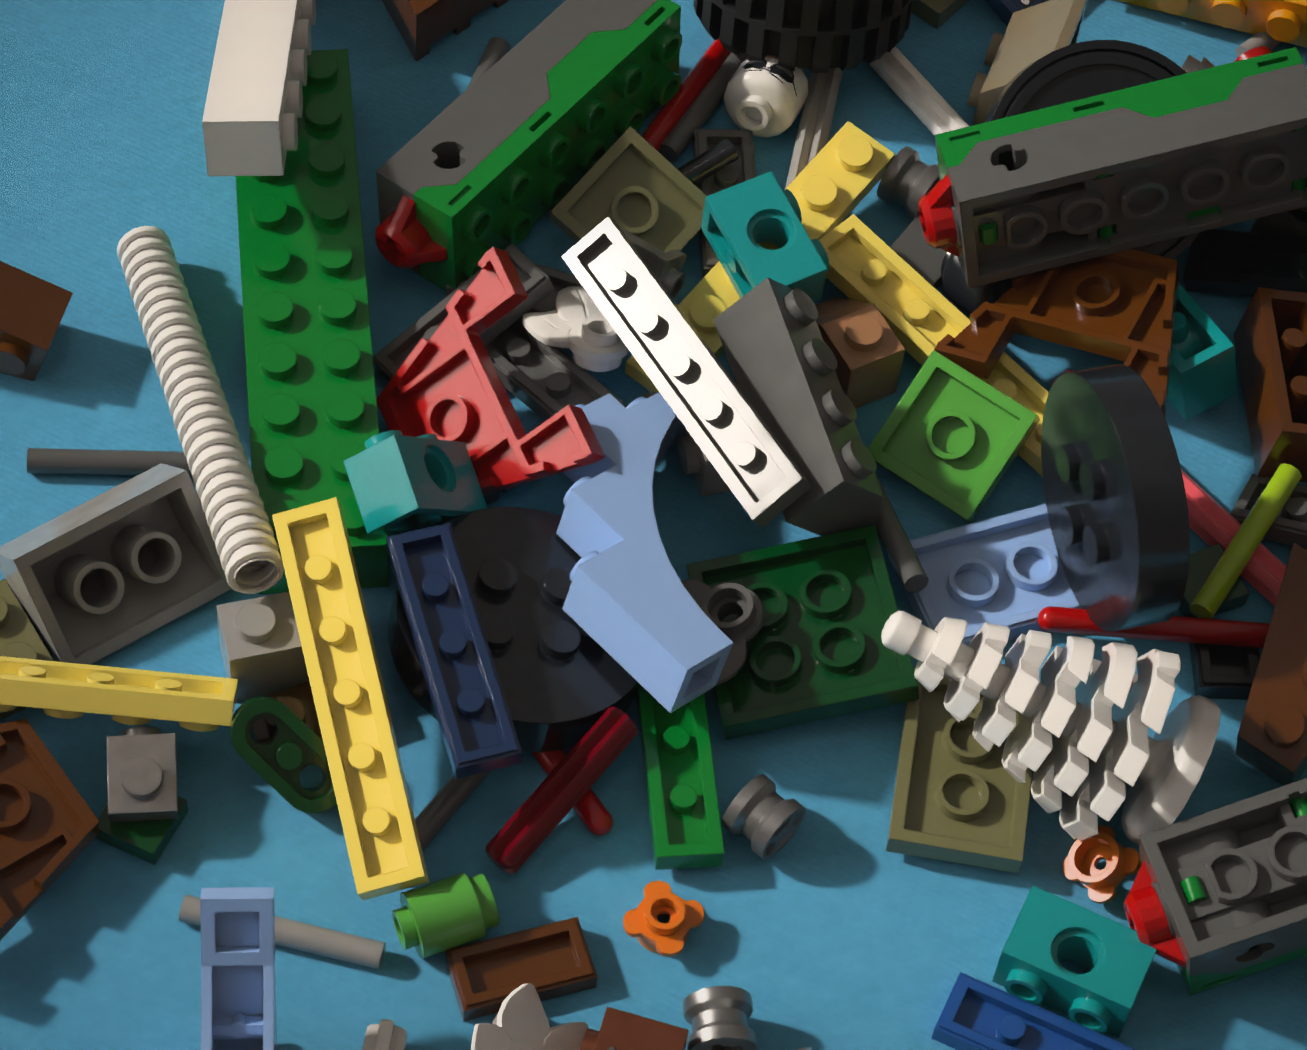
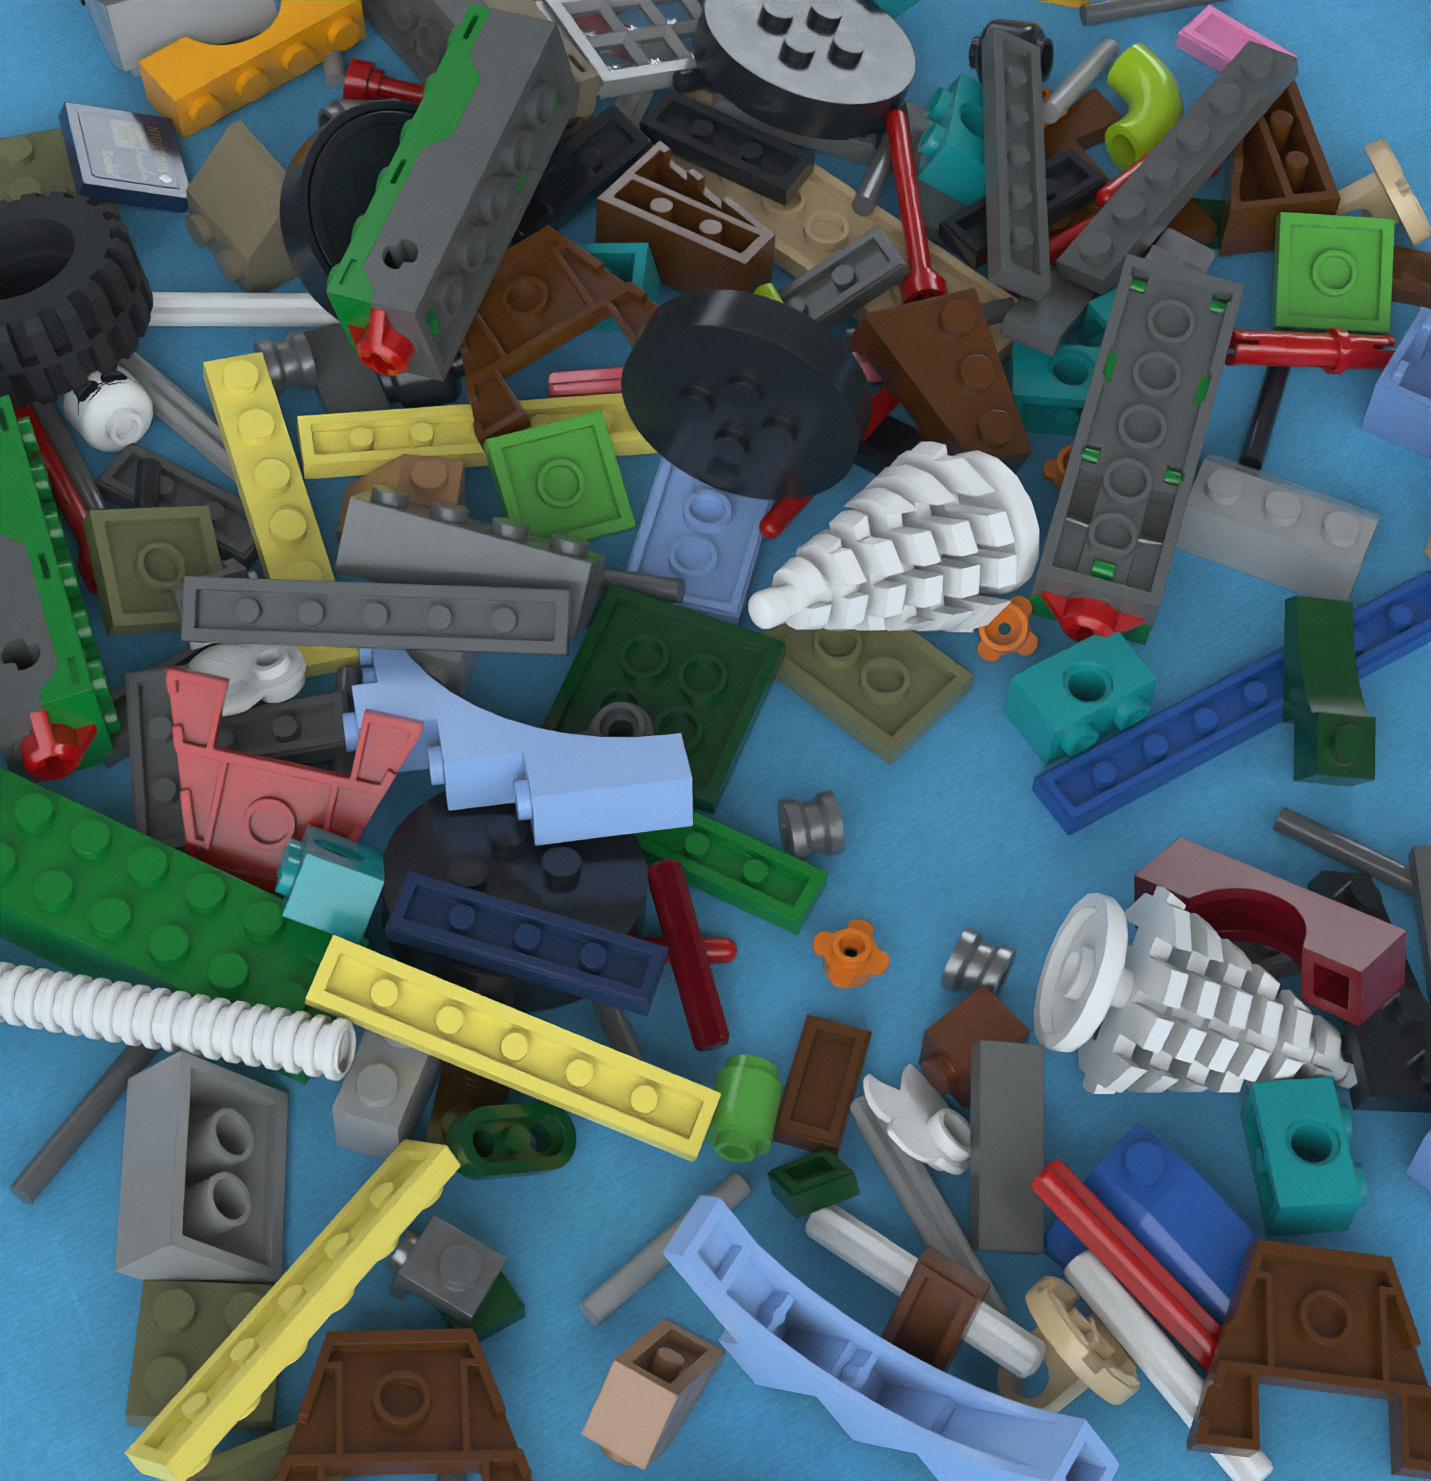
camera: 55 degrees left, 0 degrees up
(128, 986) = (651, 1393): none -> slope
(412, 1006) = (813, 1183): none -> dark green tile
(759, 213) = (263, 506): teal brick -> none

